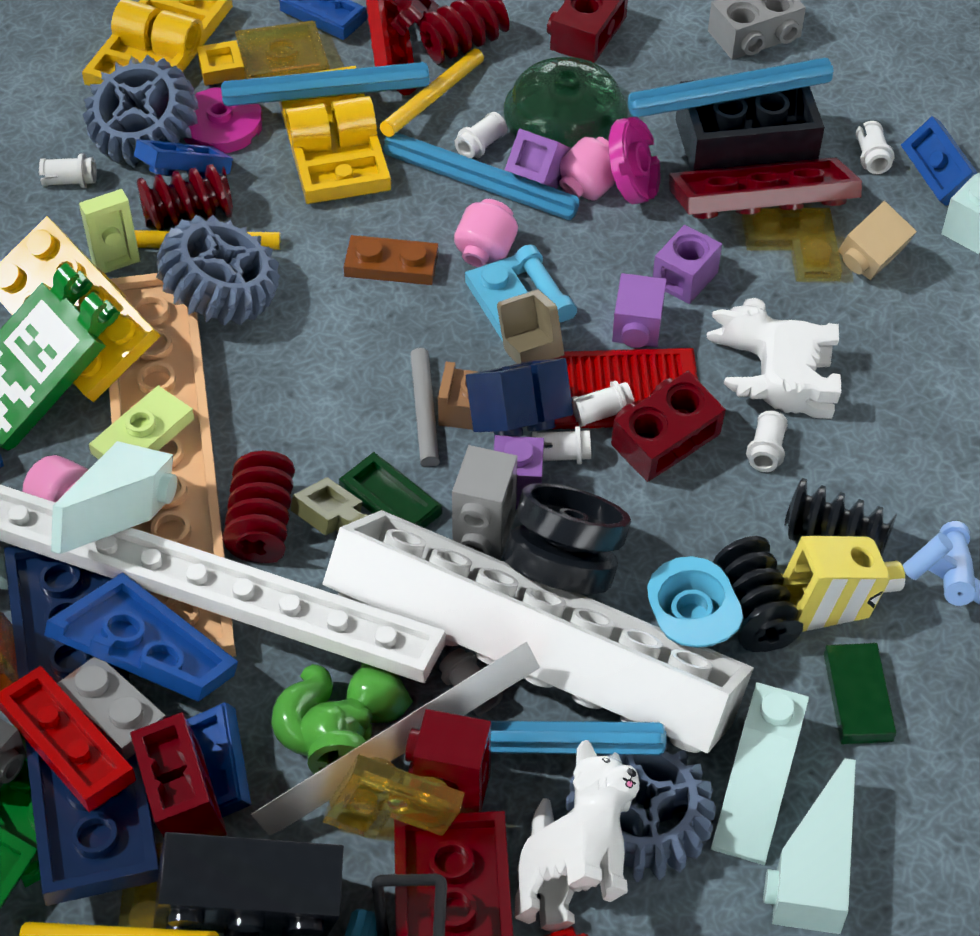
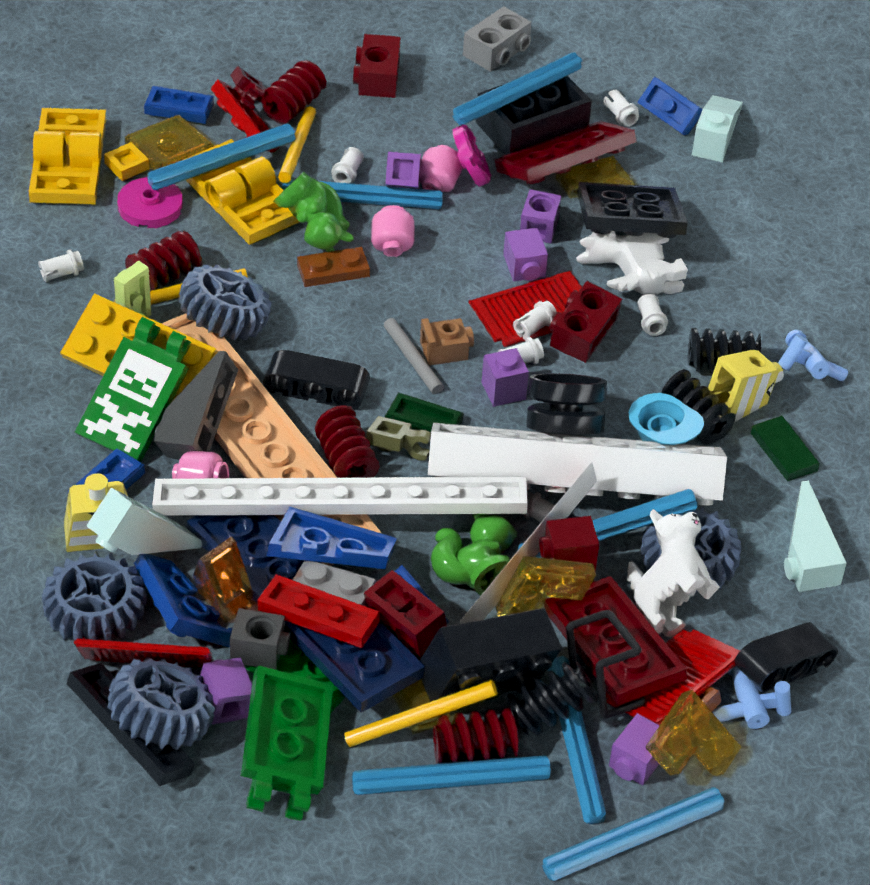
camera: 25 degrees left, 5 degrees down
(96, 399) = (197, 411): none -> dark grey slope
(112, 496) = (261, 457): light aqua slope -> none
(139, 103) = (92, 197): sand blue gear -> none
(147, 424) = (238, 420): yellowish green plate -> none
(169, 156) = (141, 234): blue plate -> none
(281, 403) = (316, 378): none -> black beam
(405, 179) = (319, 207): none -> bright green animal
(484, 500) = (499, 394): light grey brick -> none
(500, 282) = (429, 272): medium azure plate -> none
(519, 397) = (485, 327): dark blue piece -> none
(530, 327) = (462, 284): dark tan panel -> none
(565, 101) = (393, 125): clear green hat -> none
(760, 773) = (751, 506): light aqua slope -> none
(803, 287) = (631, 209): none -> black plate
(876, 241) = (659, 166): tan brick -> none

